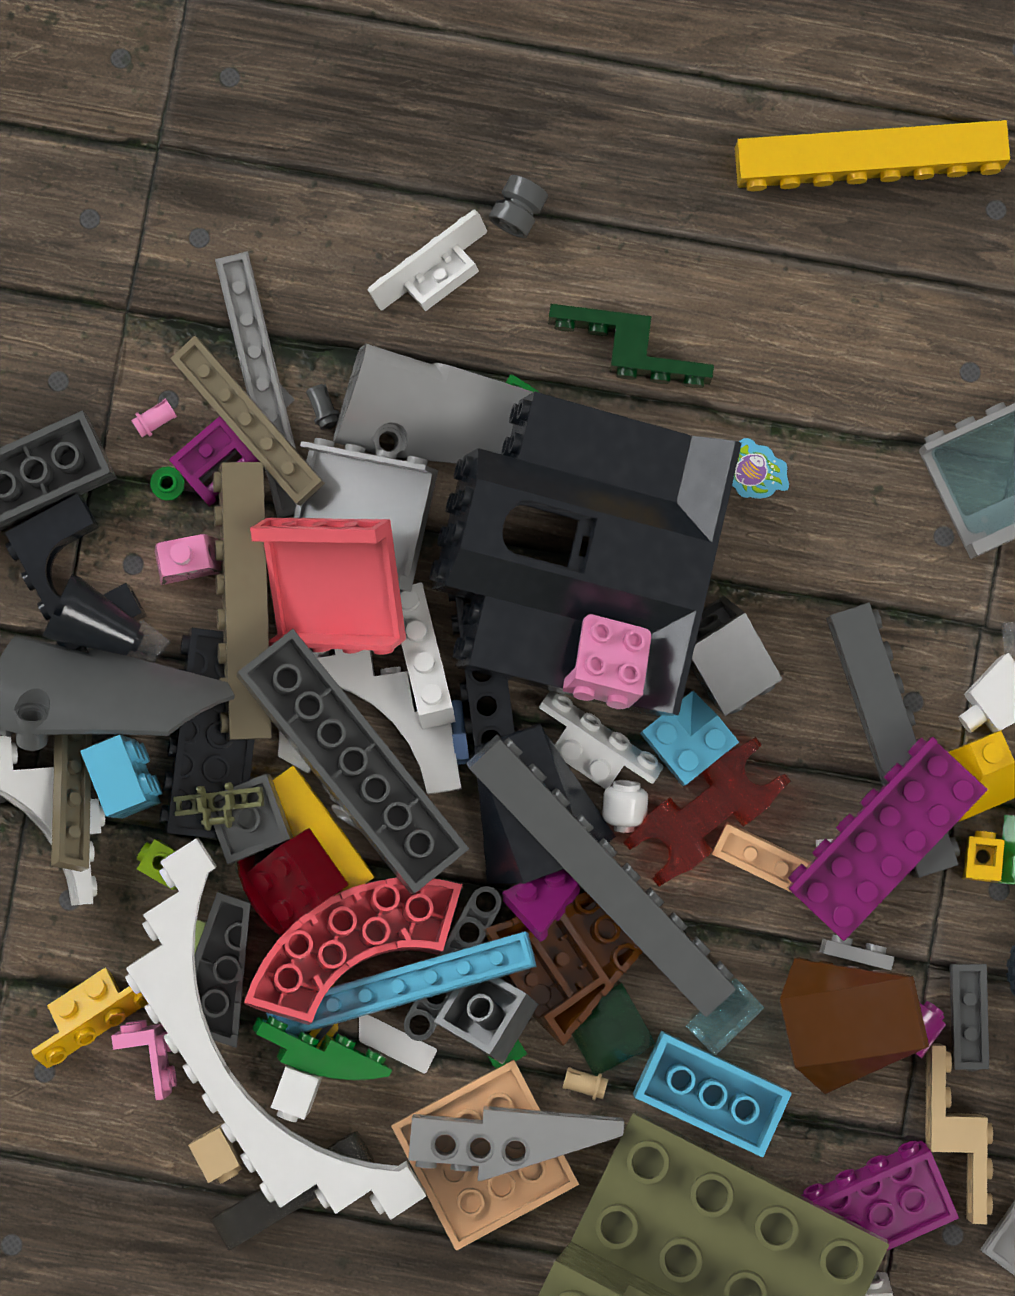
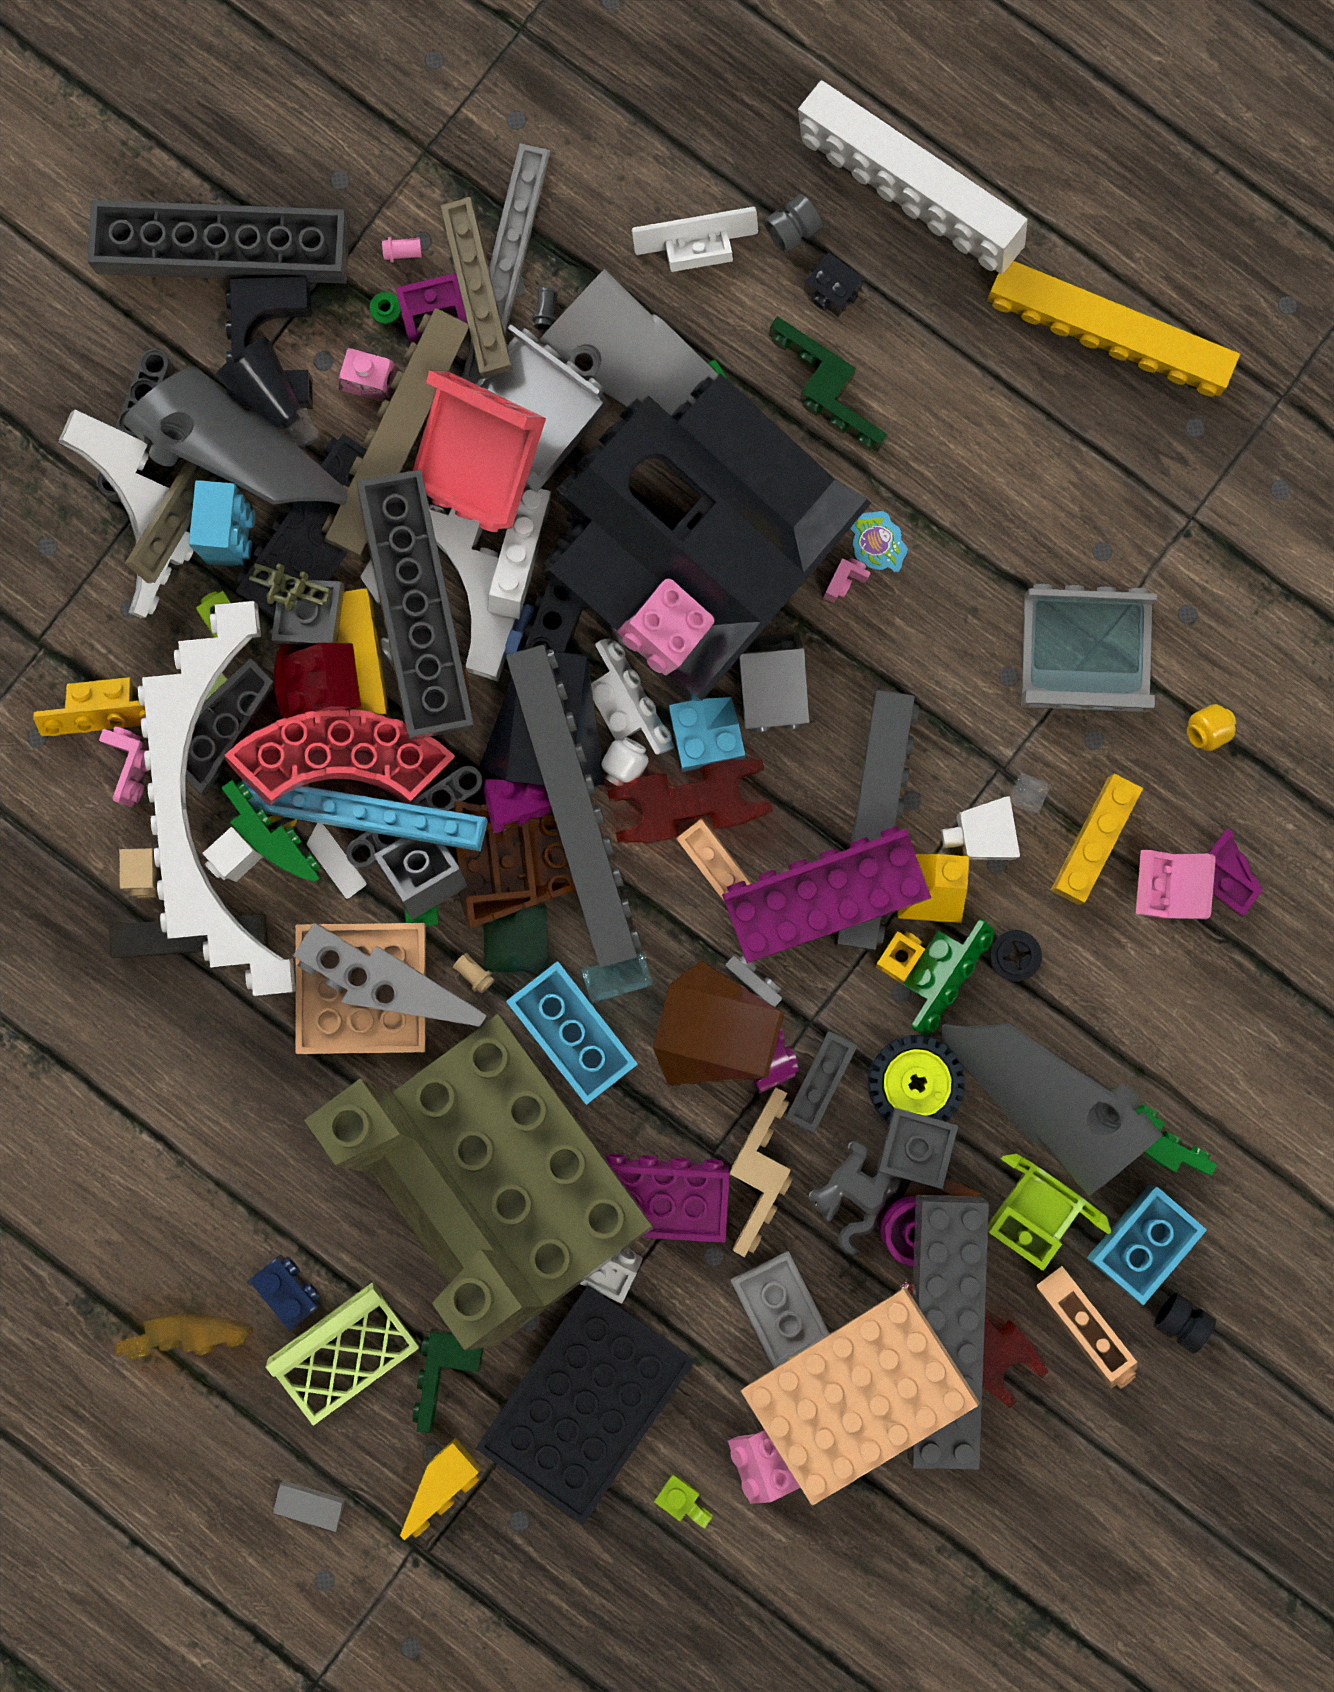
camera: 30 degrees right, 0 degrees up
(586, 246) = (833, 285): none -> black head
(612, 108) = (912, 178): none -> white brick
(739, 528) = (840, 583): none -> bright pink bracket

